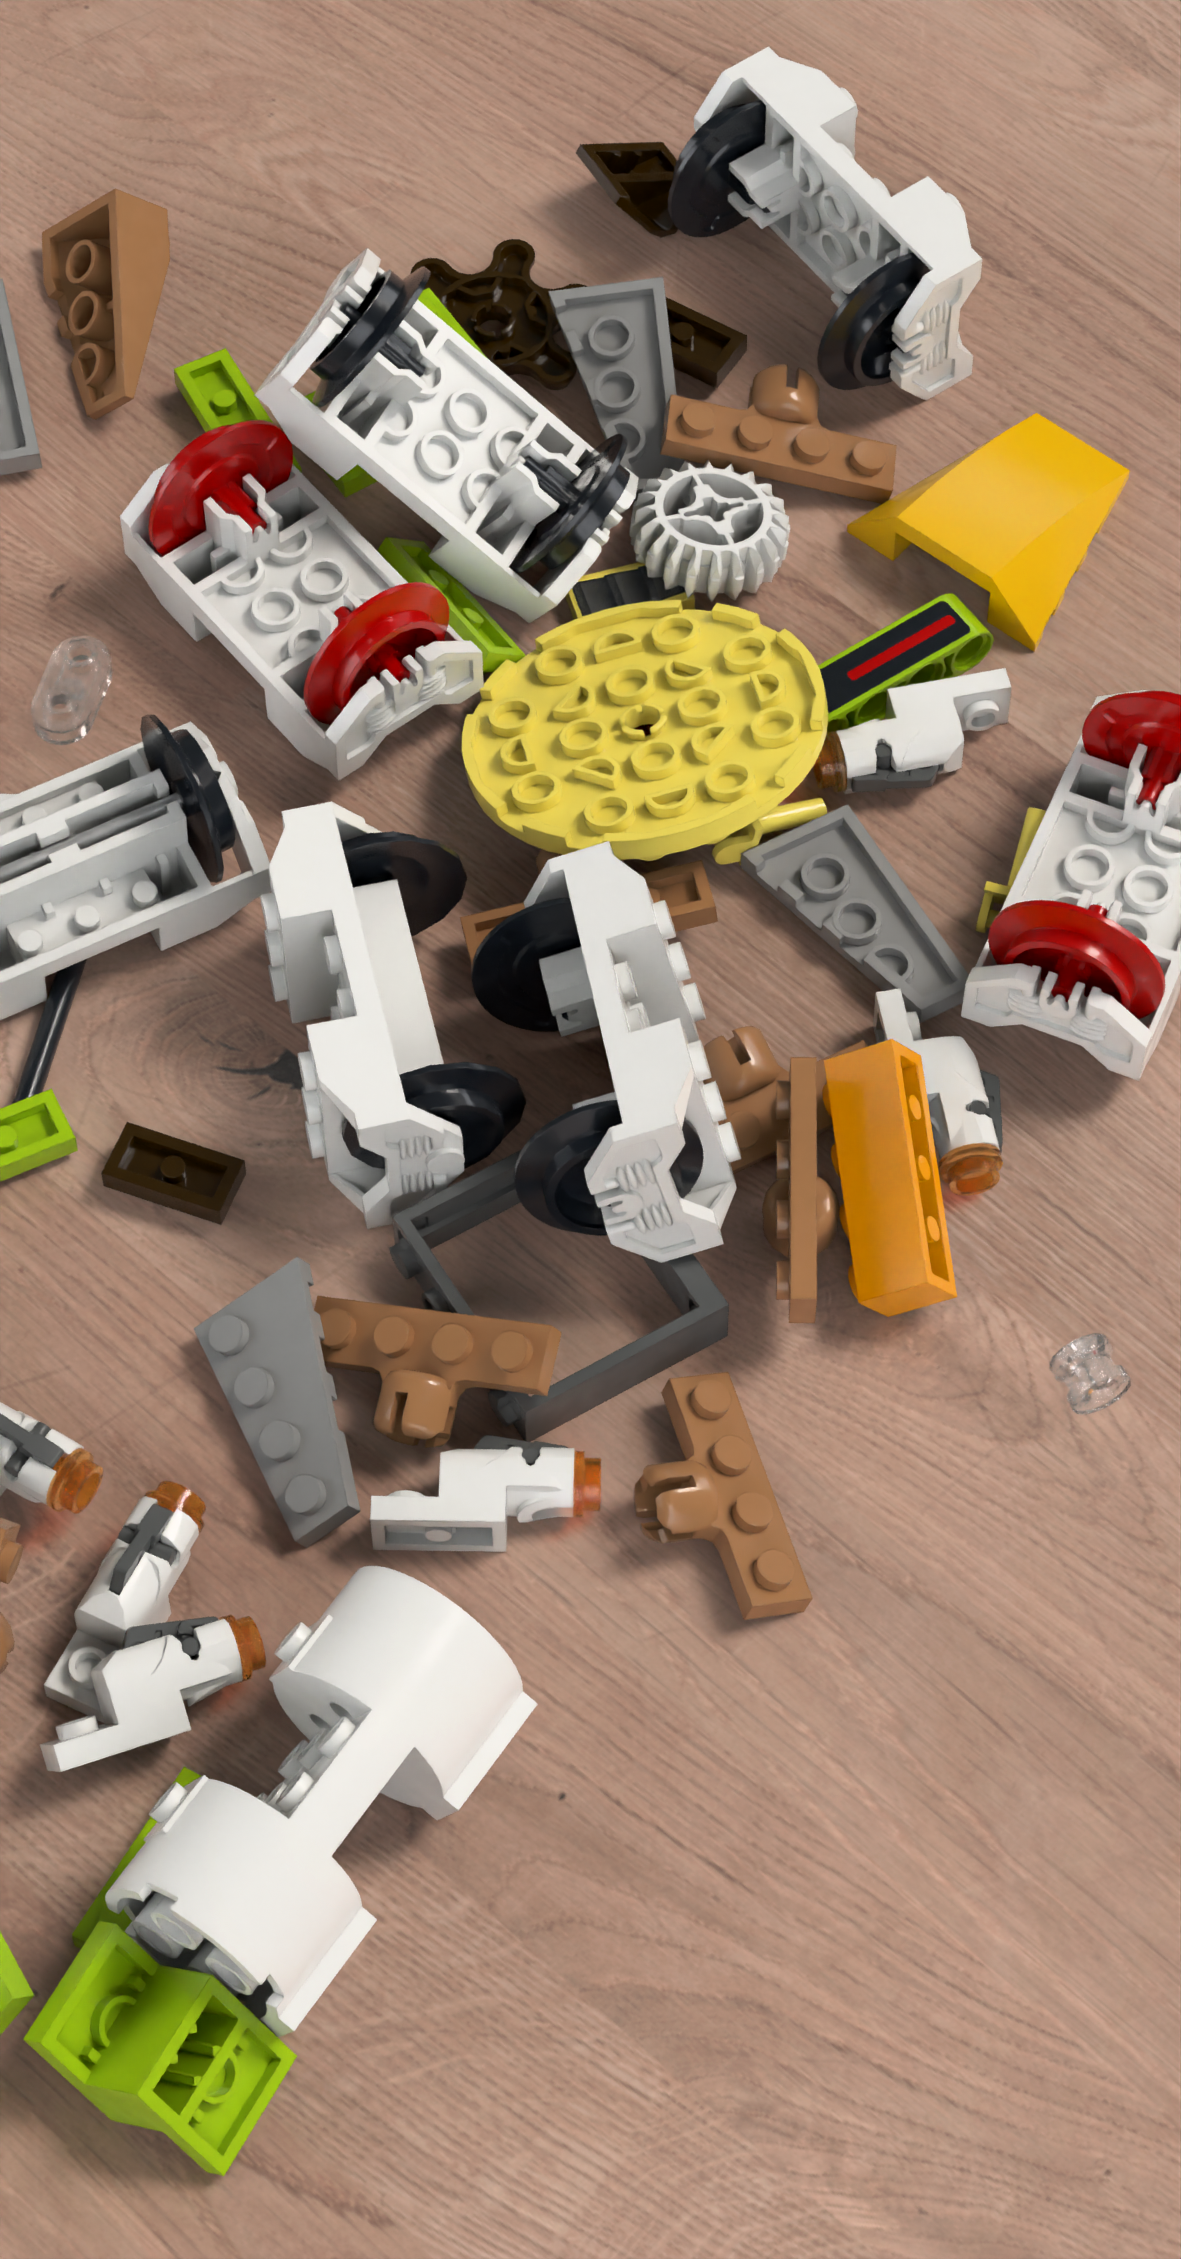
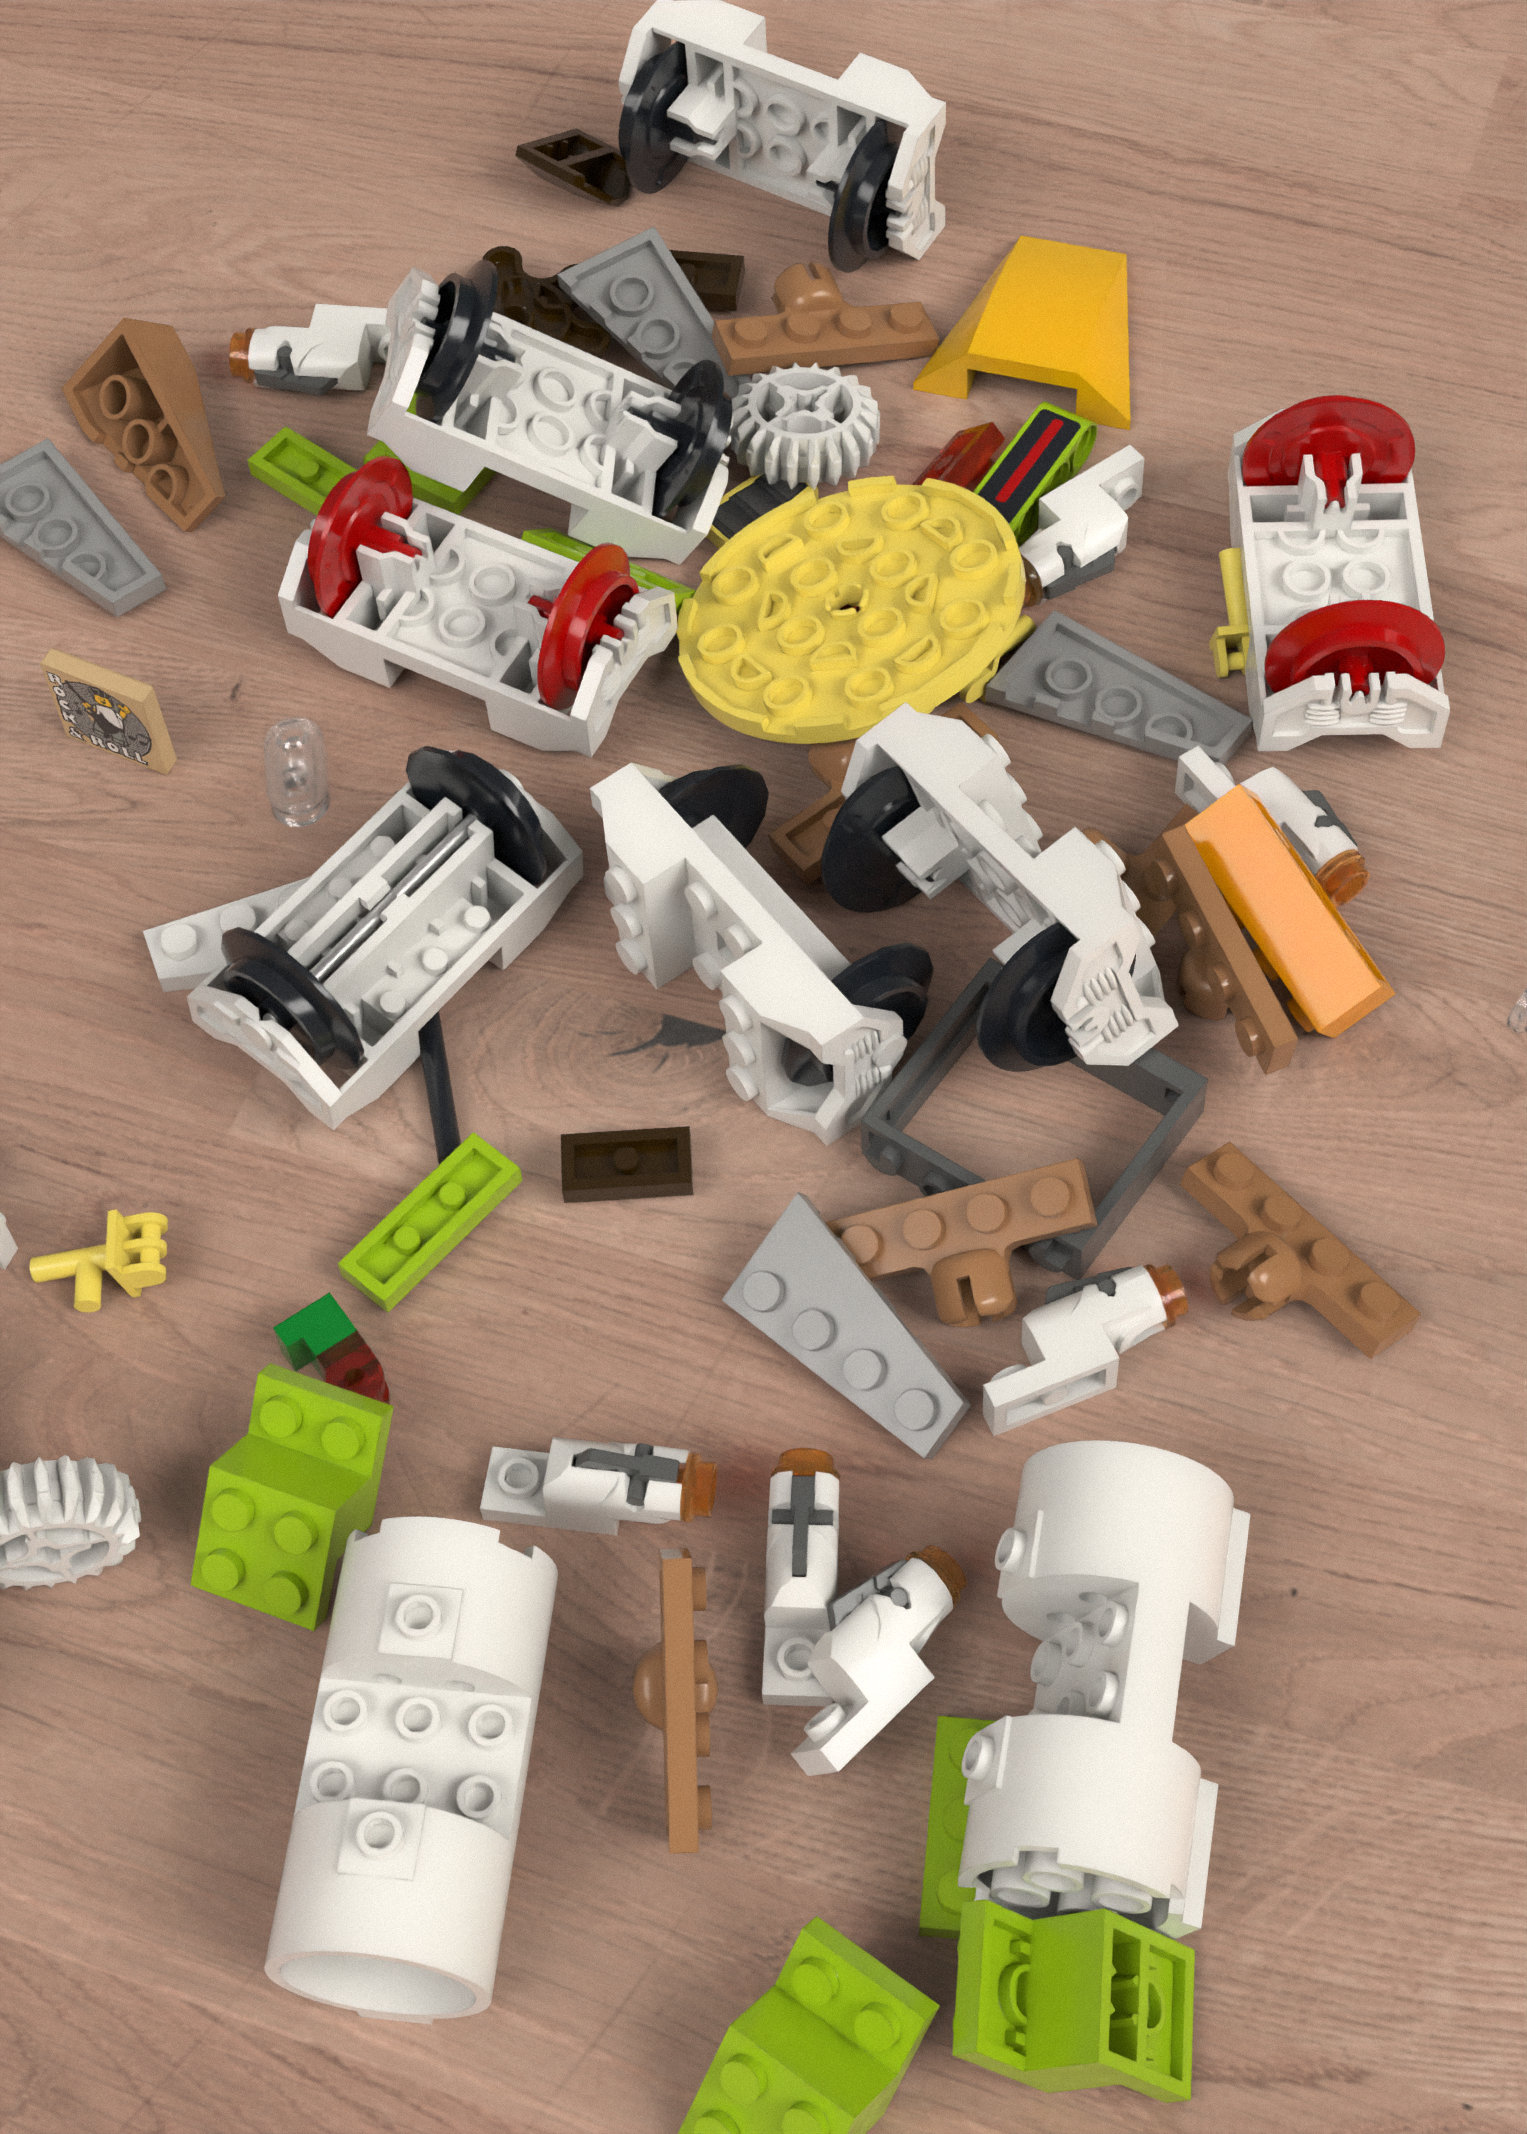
camera: 20 degrees left, 0 degrees up
(272, 283) = (312, 360): none -> white plate
(842, 622) = (964, 456): none -> clear red plate

